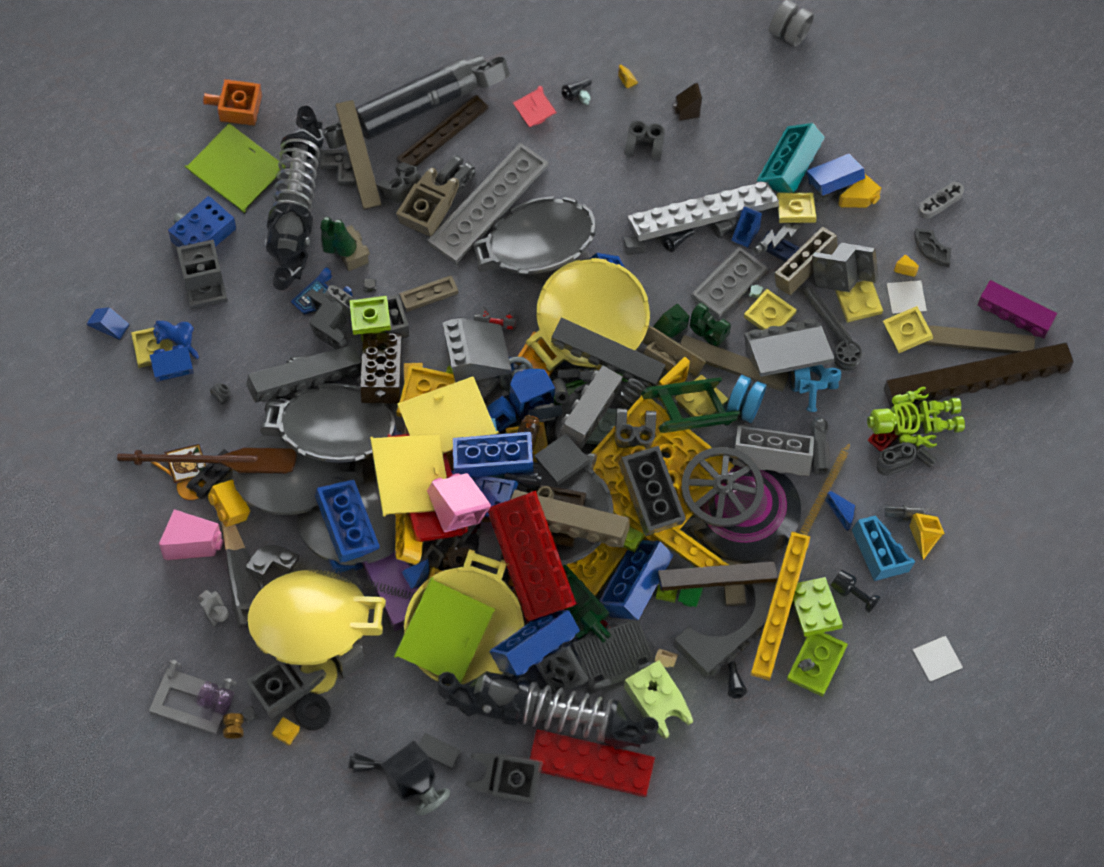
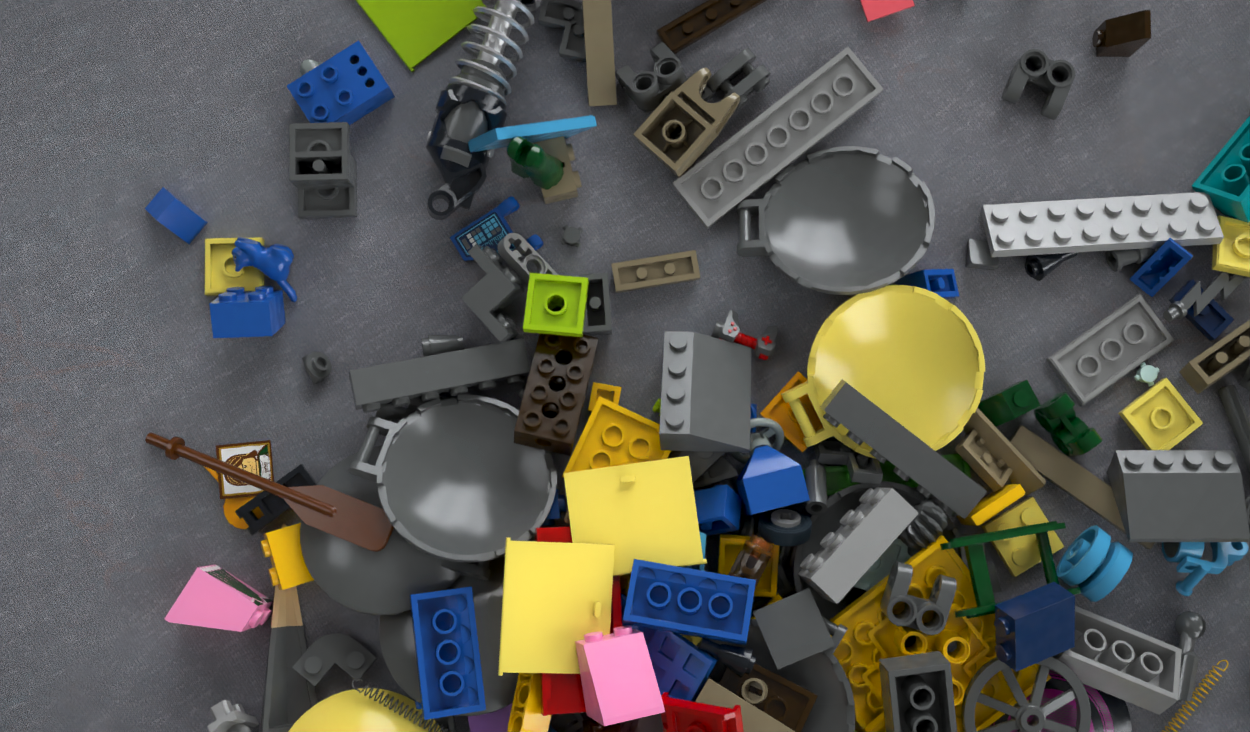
camera: 15 degrees right, 20 degrees up
(349, 217) = (532, 132): none -> dark azure tile
(711, 428) = (1035, 626): none -> dark blue brick

